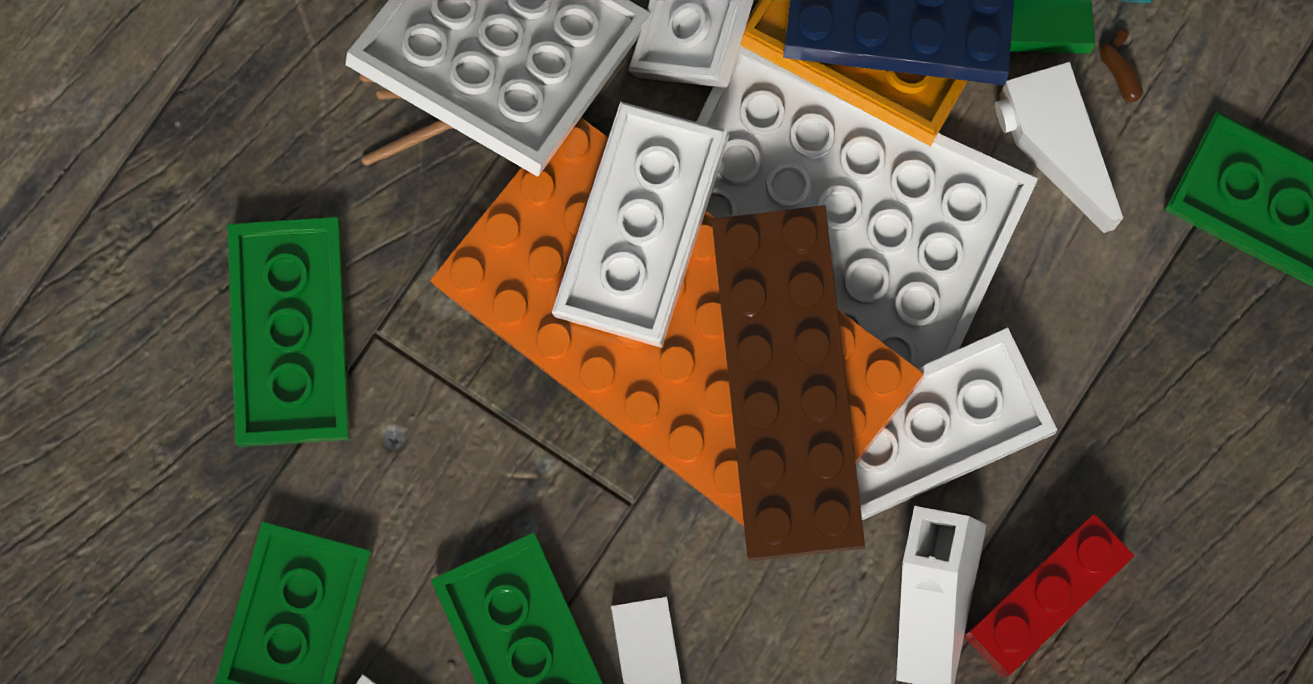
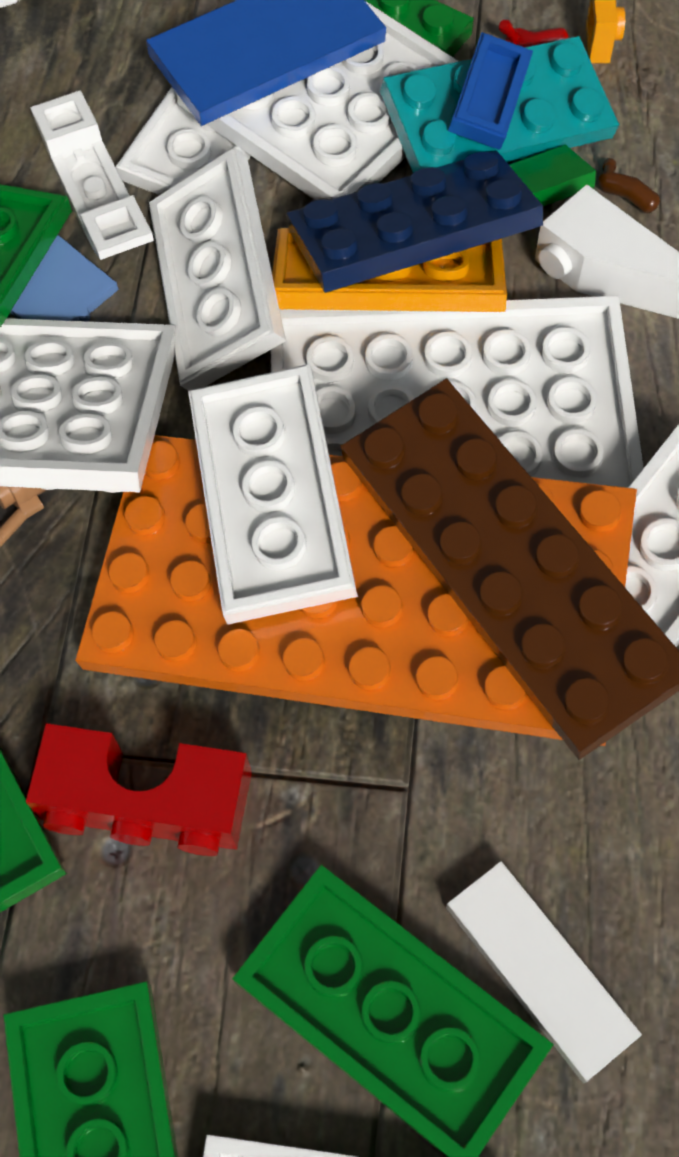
camera: 30 degrees left, 15 degrees down
(390, 380) = (196, 805): none -> red arch

